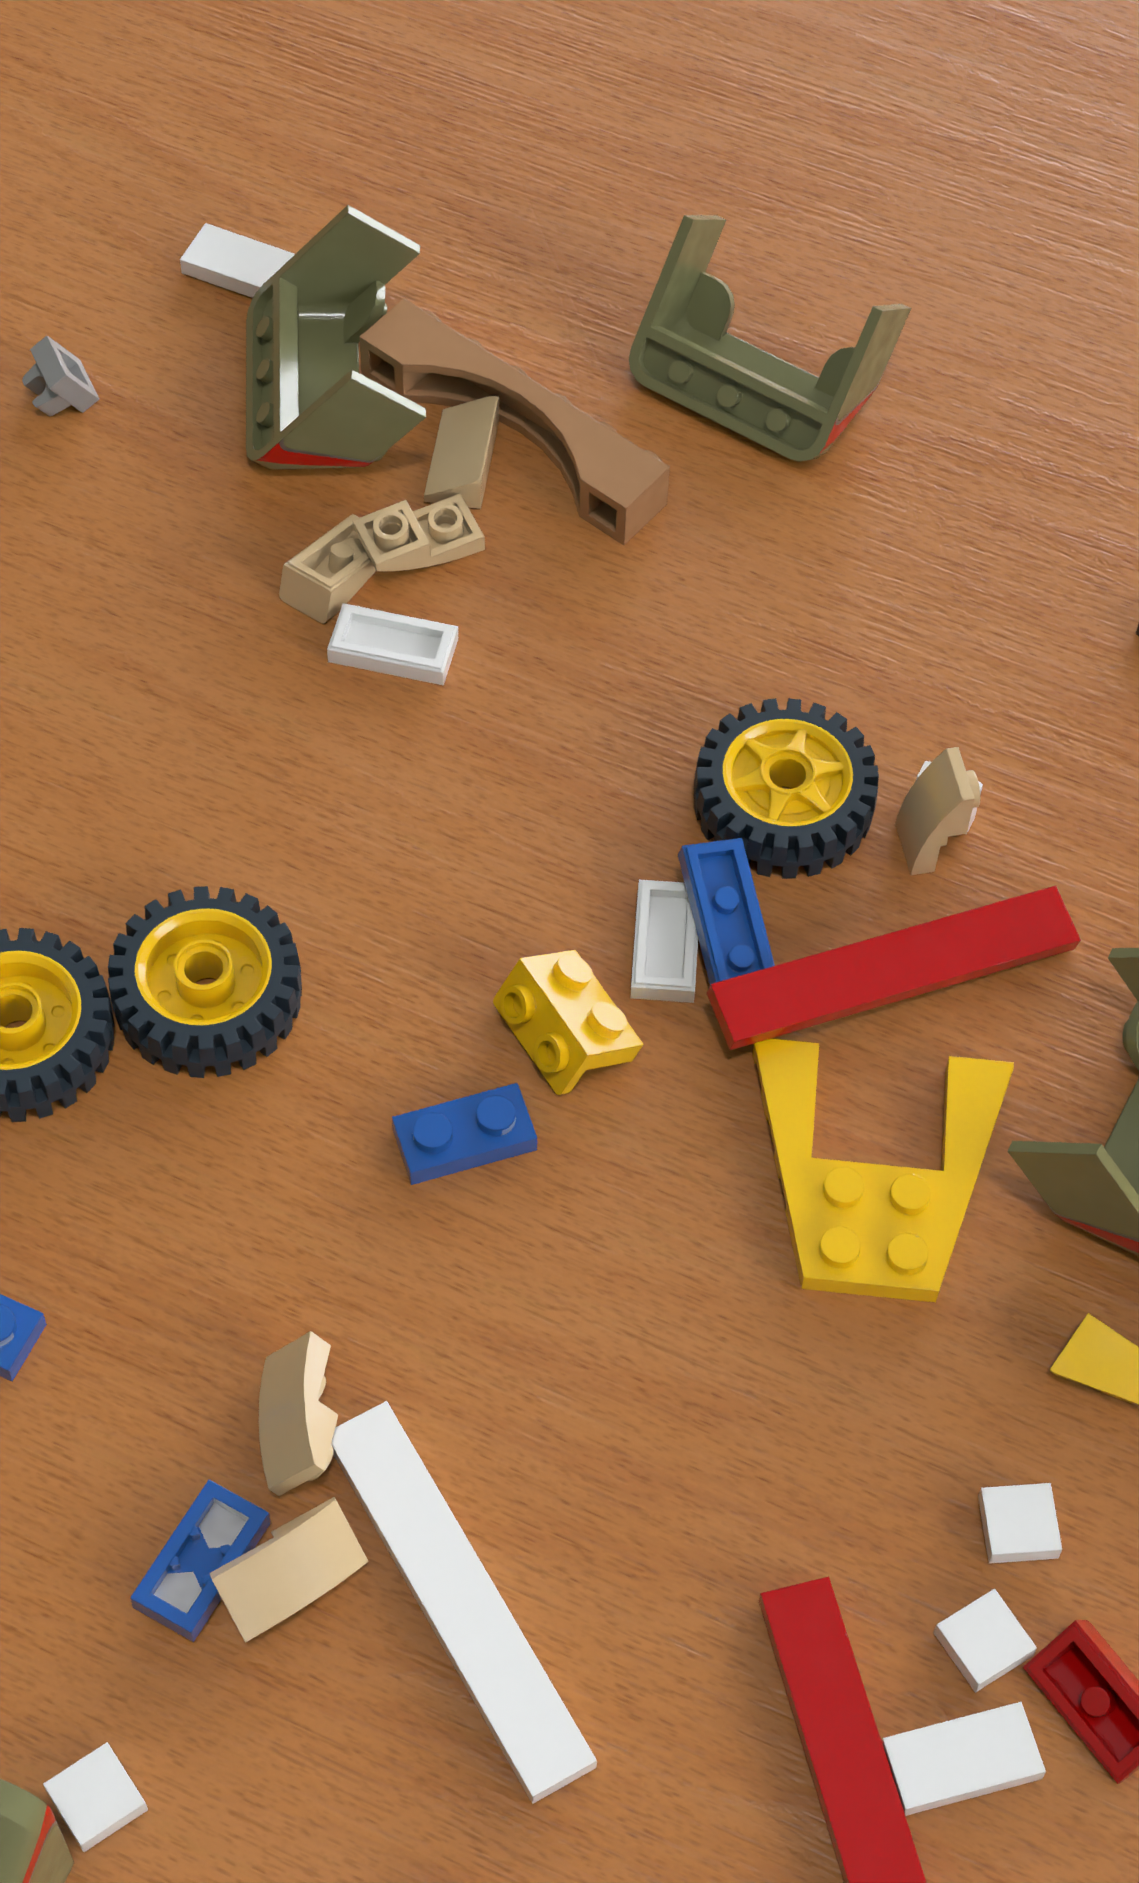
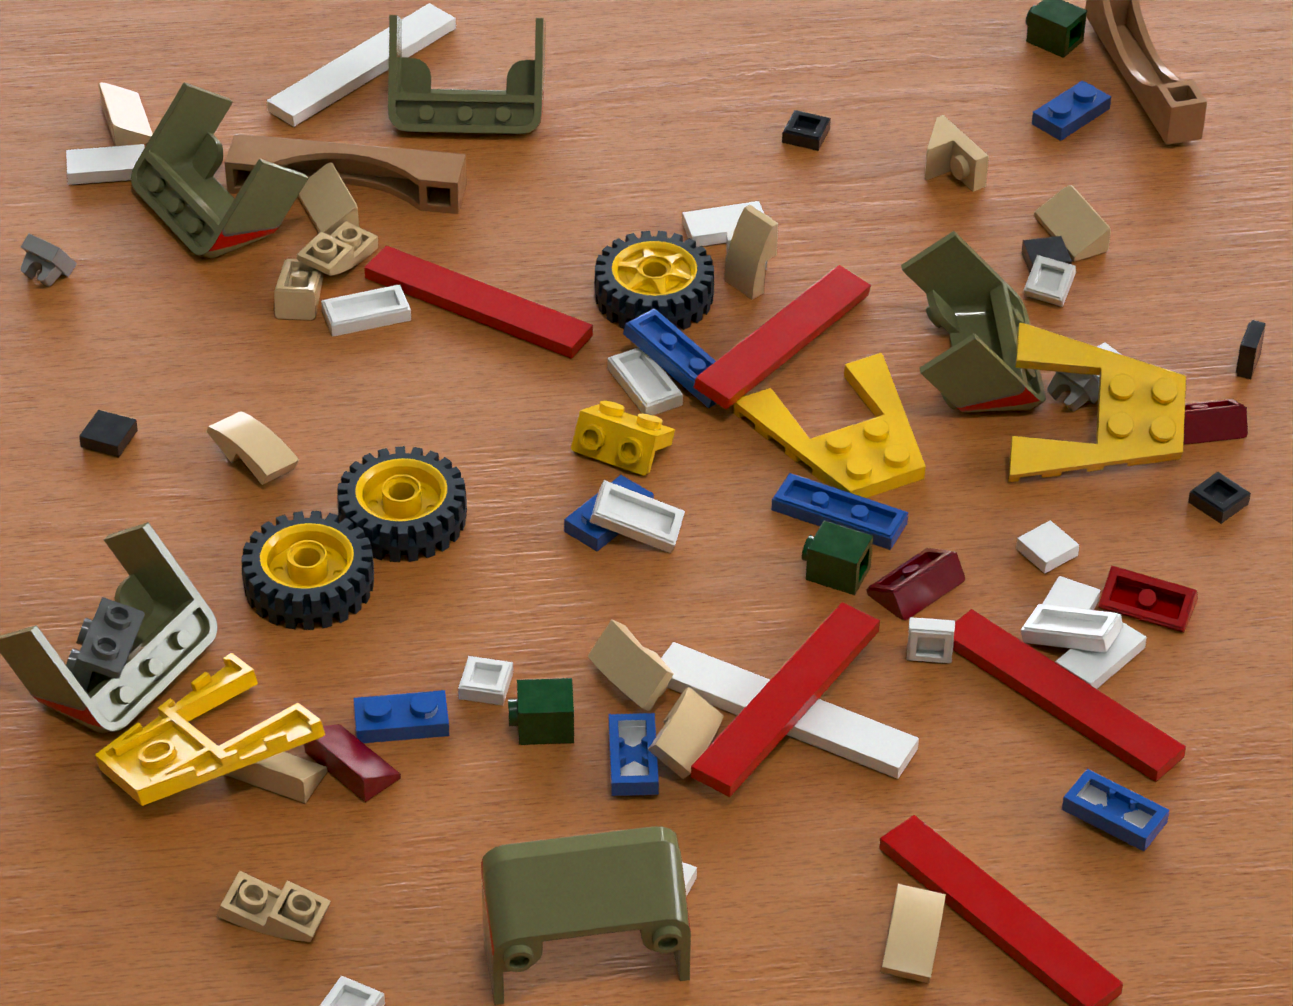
camera: 30 degrees left, 15 degrees down
(91, 792) = (255, 444): none -> tan slope
(113, 1321) = (485, 680): none -> white tile
(135, 1423) = (543, 711): none -> dark green brick
(313, 196) = (124, 115): none -> slope
(456, 1591) = (784, 699): none -> red tile
(482, 1168) = (637, 516): none -> white tile
(544, 704) = (479, 301): none -> red tile
(639, 256) = (358, 66): none -> white tile
(703, 1384) = (838, 557): none -> dark green brick
(728, 1602) = (930, 640): none -> white tile
(773, 1299) = (819, 503): none -> blue tile
(794, 1481) = (918, 582): none -> dark red slope
(932, 725) = (712, 224): none -> white tile
(945, 1696) = (1072, 628): none -> white tile

